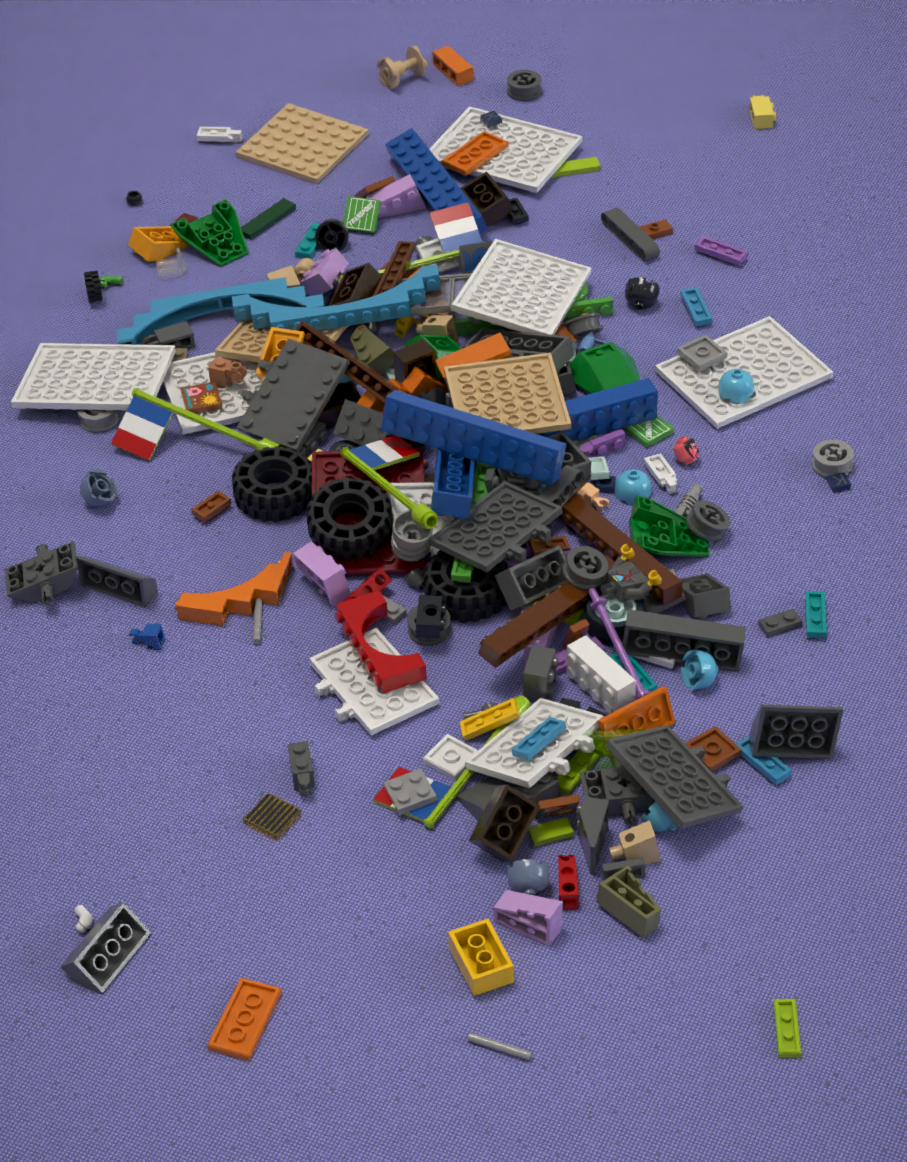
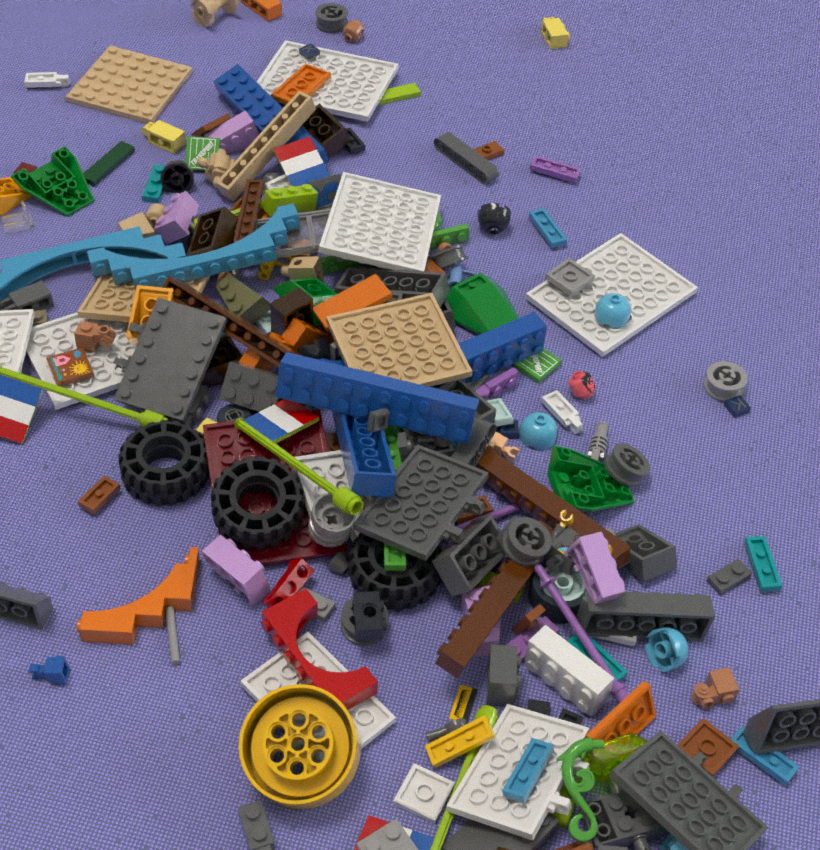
camera: 15 degrees left, 5 degrees up
(327, 195) = (164, 136): none -> light yellow brick
(358, 732) = (318, 781): none -> yellow wheel
(375, 229) = (216, 165): none -> tan piece
(417, 214) = (261, 149): none -> tan brick
(448, 260) = (303, 198): none -> lime brick
(469, 455) = (378, 420): none -> dark grey tile
(505, 693) = (463, 703): none -> sticker
(543, 100) = (353, 31): none -> nougat head
(575, 756) = (568, 758): none -> bright green plant
(639, 588) = (597, 567): none -> lavender wedge
(739, 708) = (718, 689): none -> nougat brick

